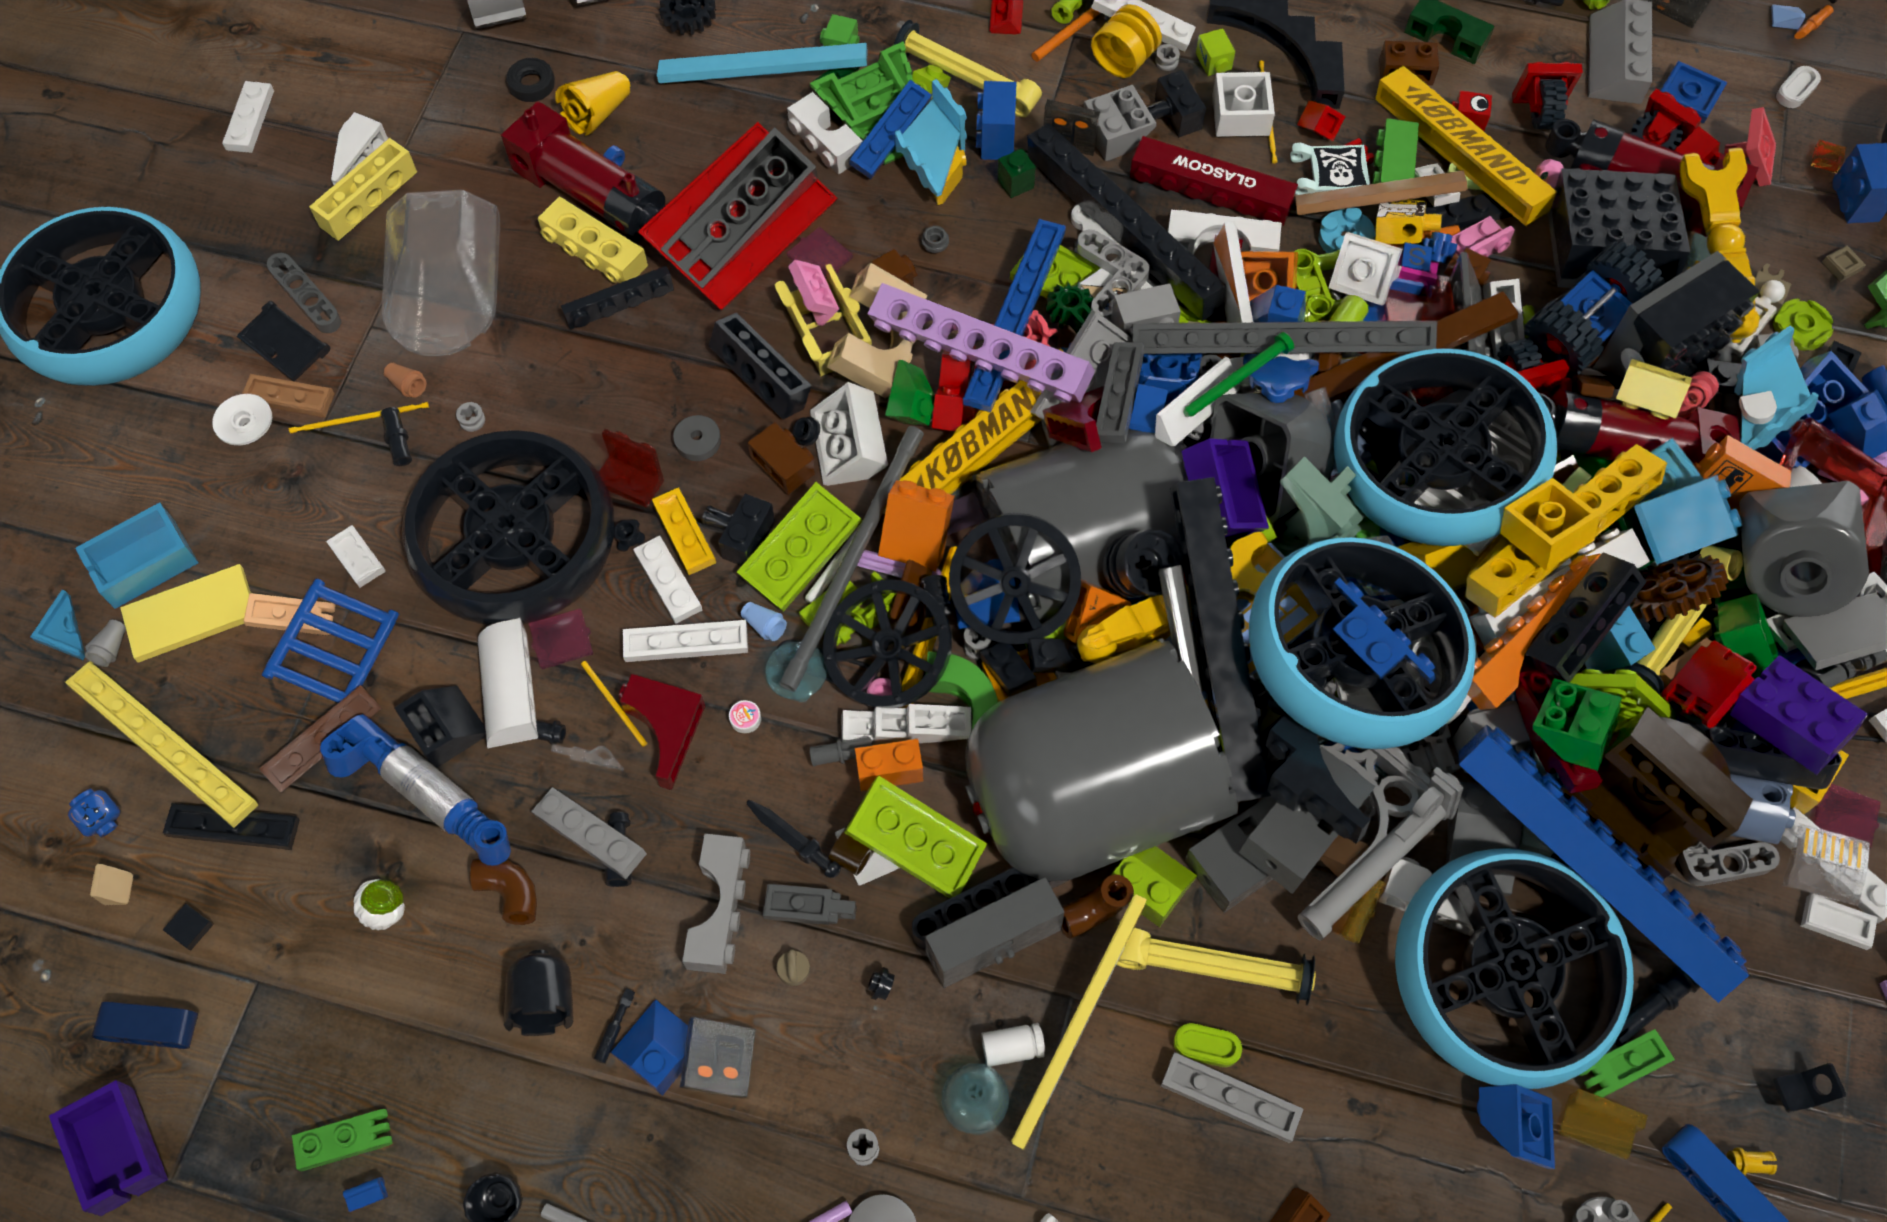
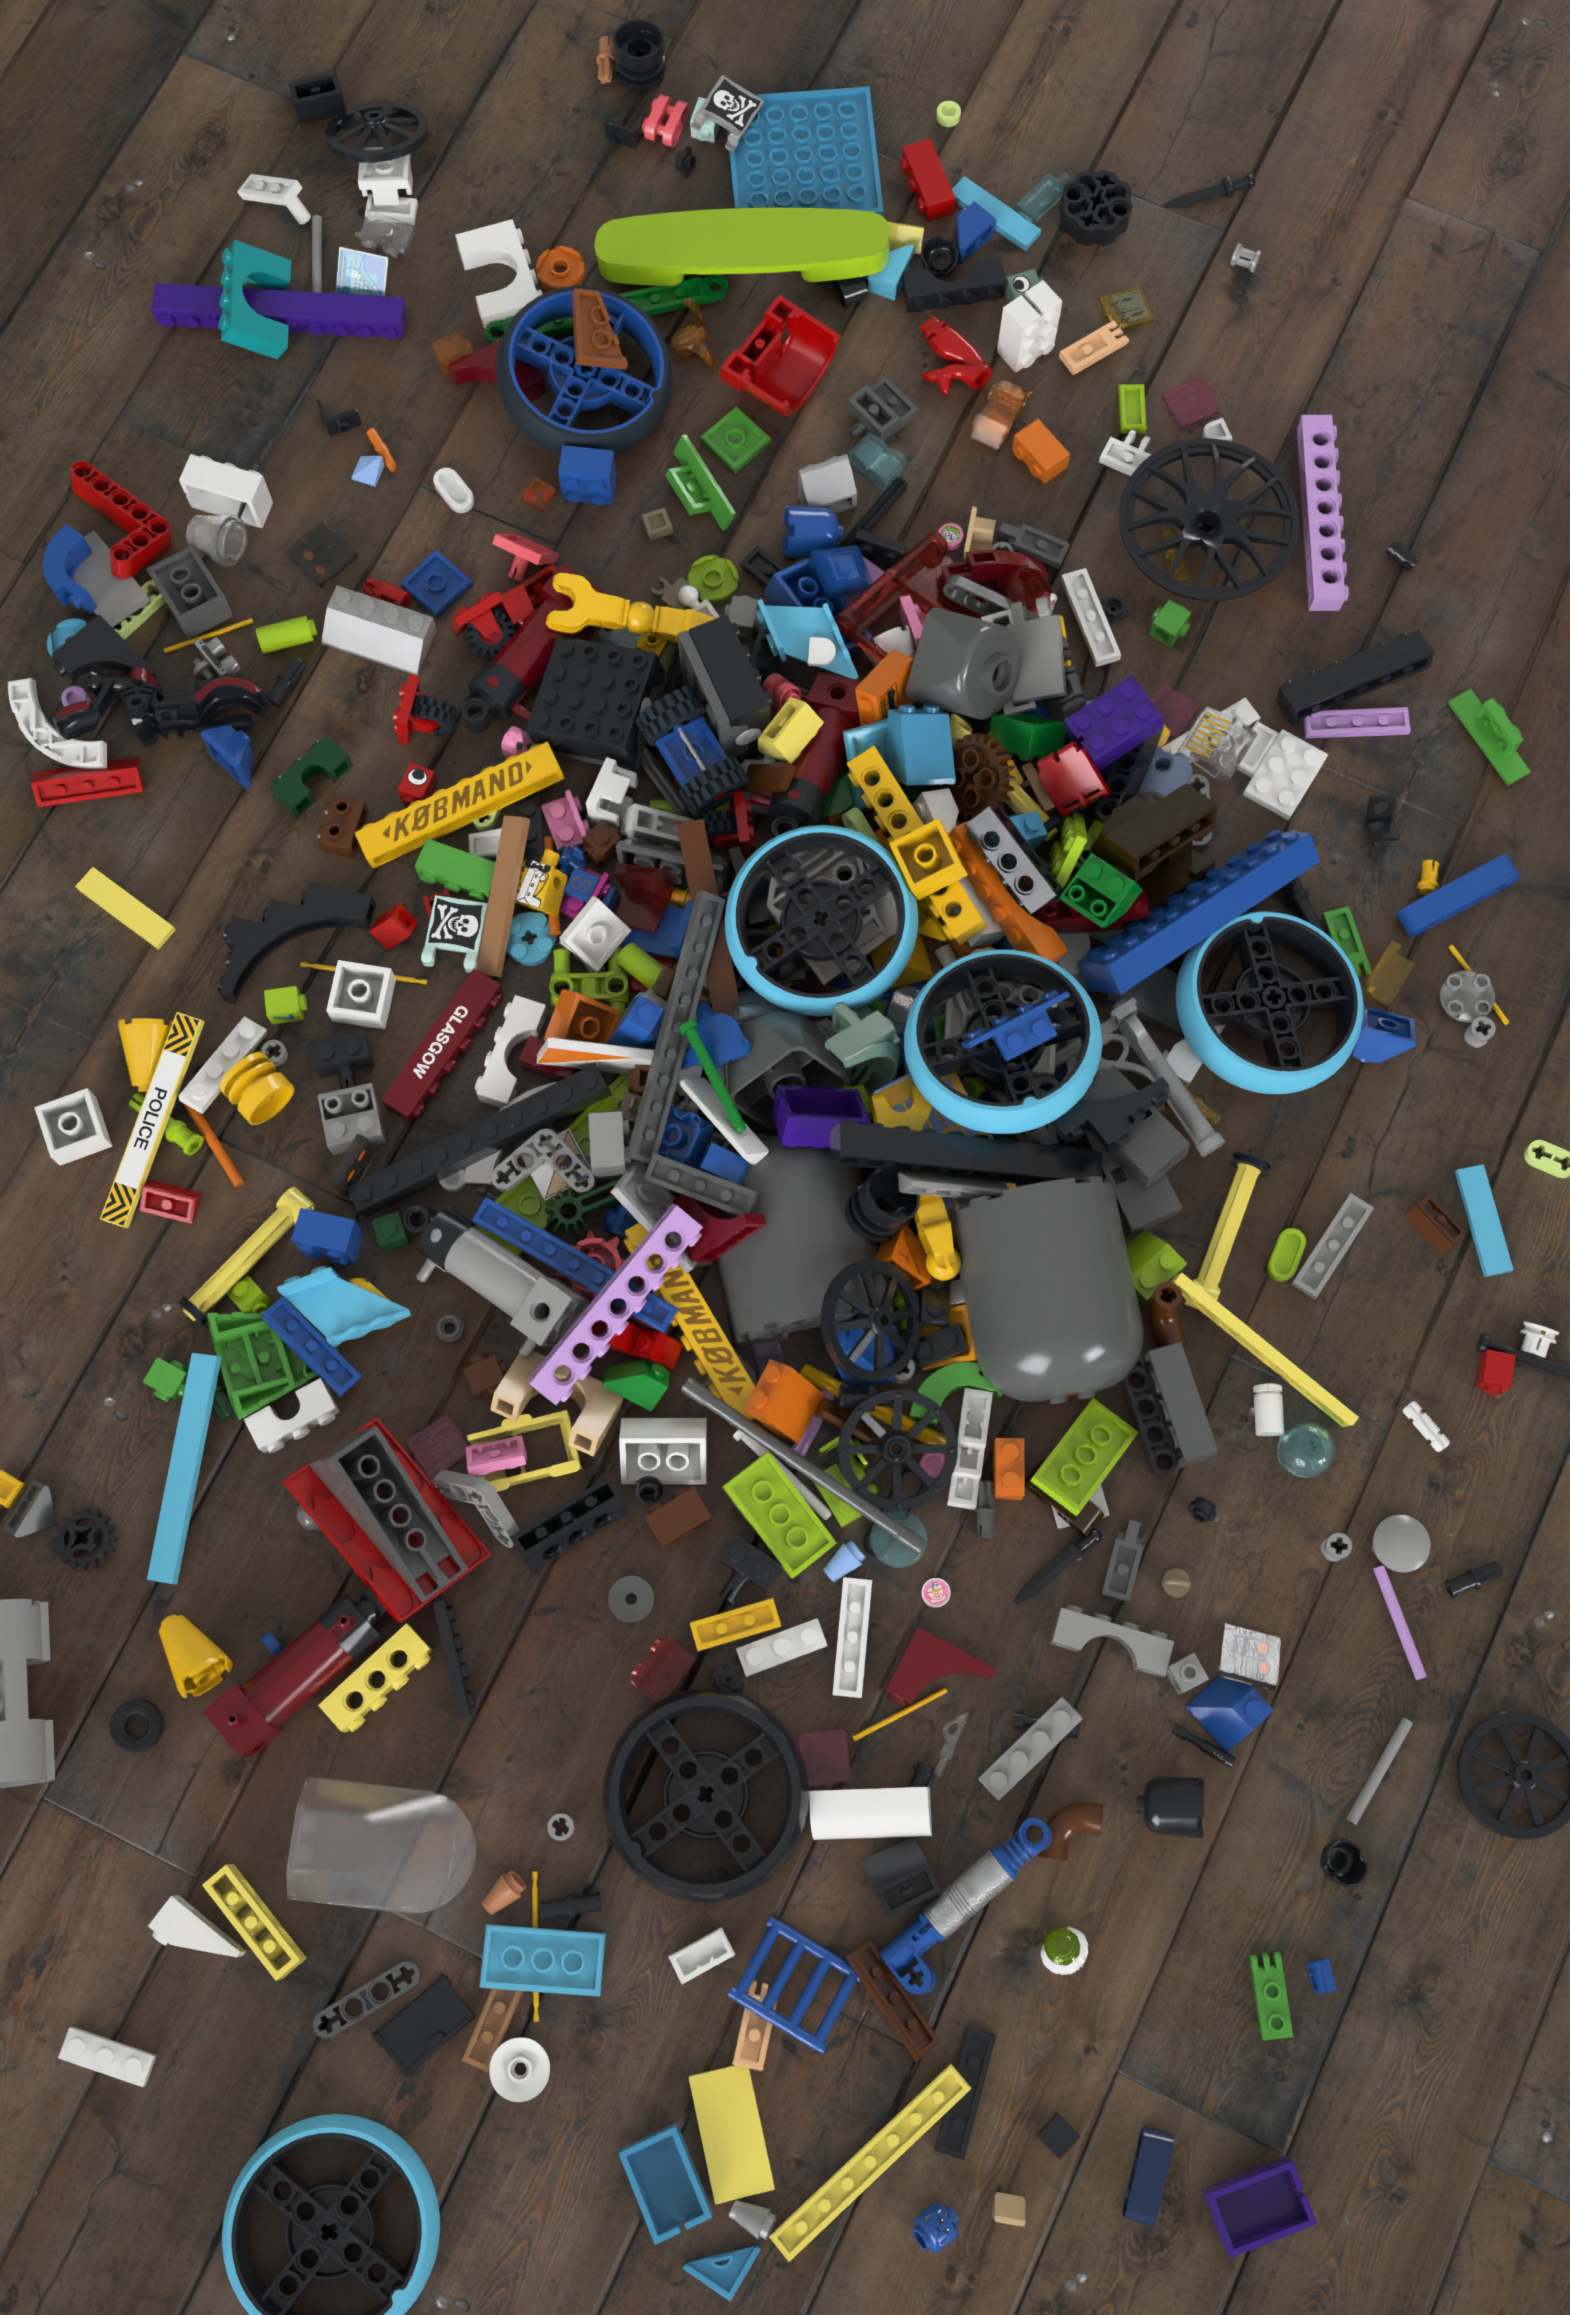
camera: 80 degrees left, 10 degrees up
(343, 422) = (542, 1960): none -> medium azure tile
(690, 989) = (1186, 1673): none -> light grey brick
(766, 285) = (484, 1496): none -> light grey beam
(993, 251) = (538, 1304): none -> light grey piece
(1524, 259) = (608, 794): none -> white panel
(1662, 53) = (386, 592): none -> red hinge
(1821, 963) = (1285, 774): none -> white plate

